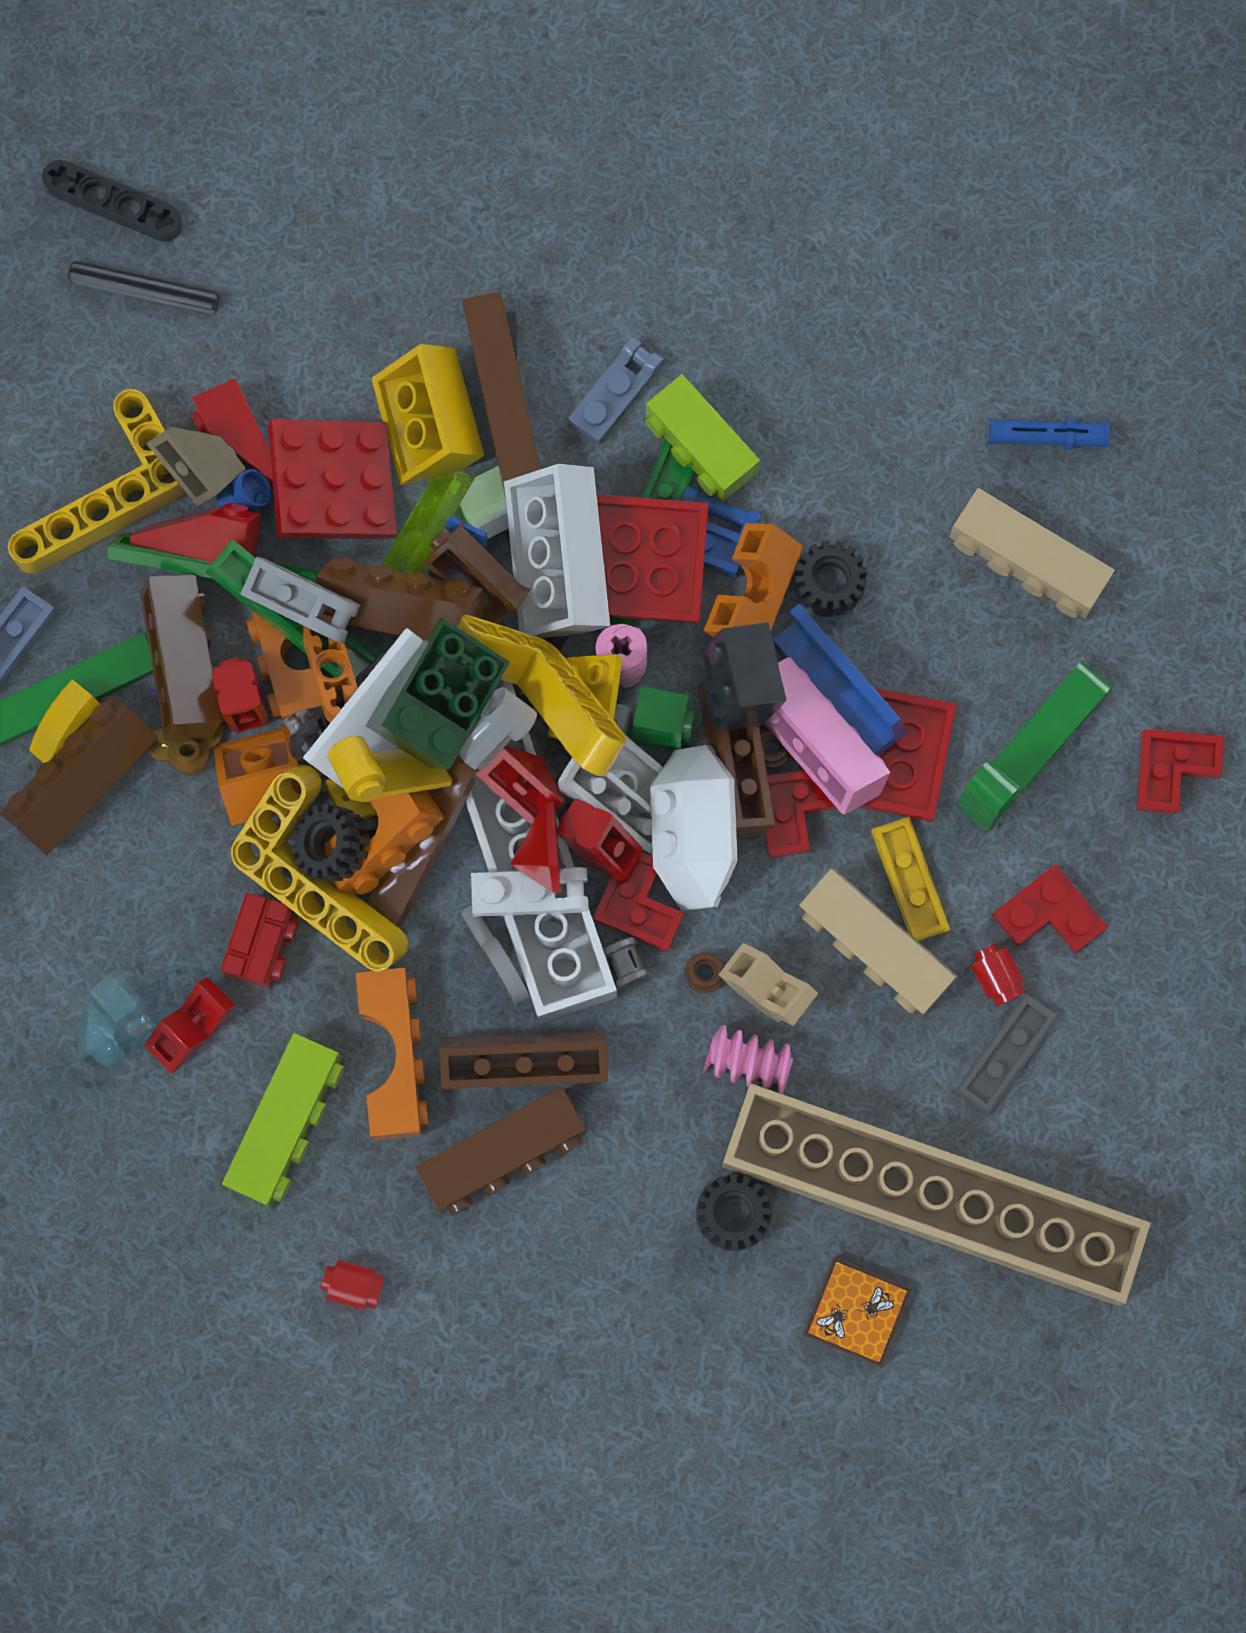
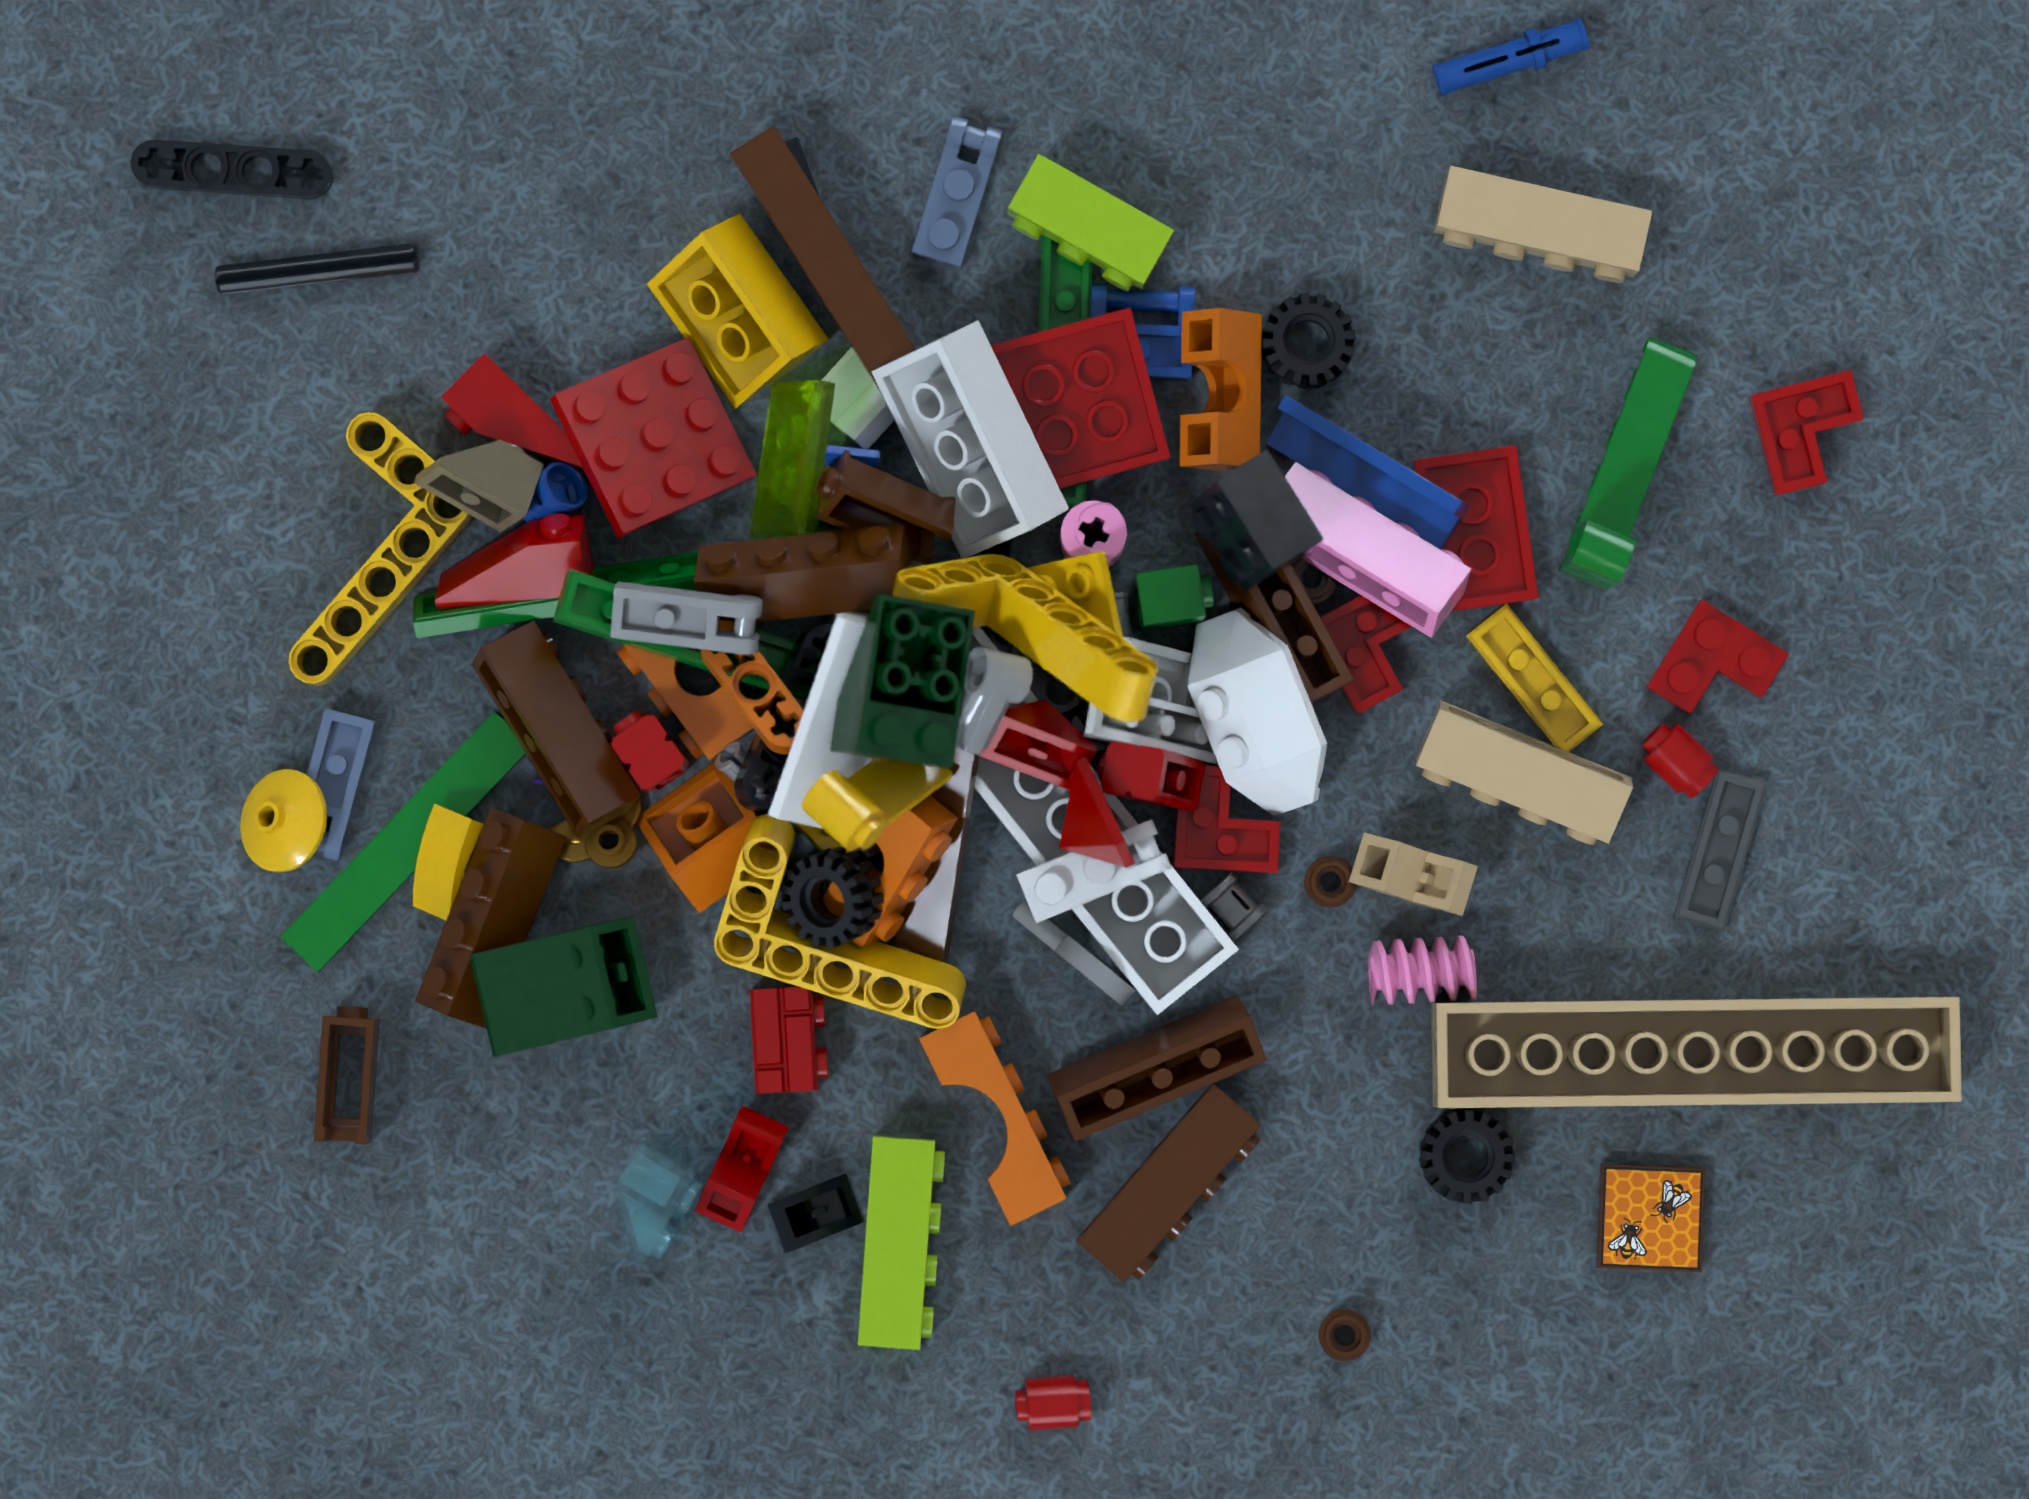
camera: 25 degrees left, 10 degrees up
(110, 839) = (563, 986): none -> dark green slope
(228, 1076) = (815, 1213): none -> black slope
(601, 1305) = (1361, 1335): none -> reddish brown plate

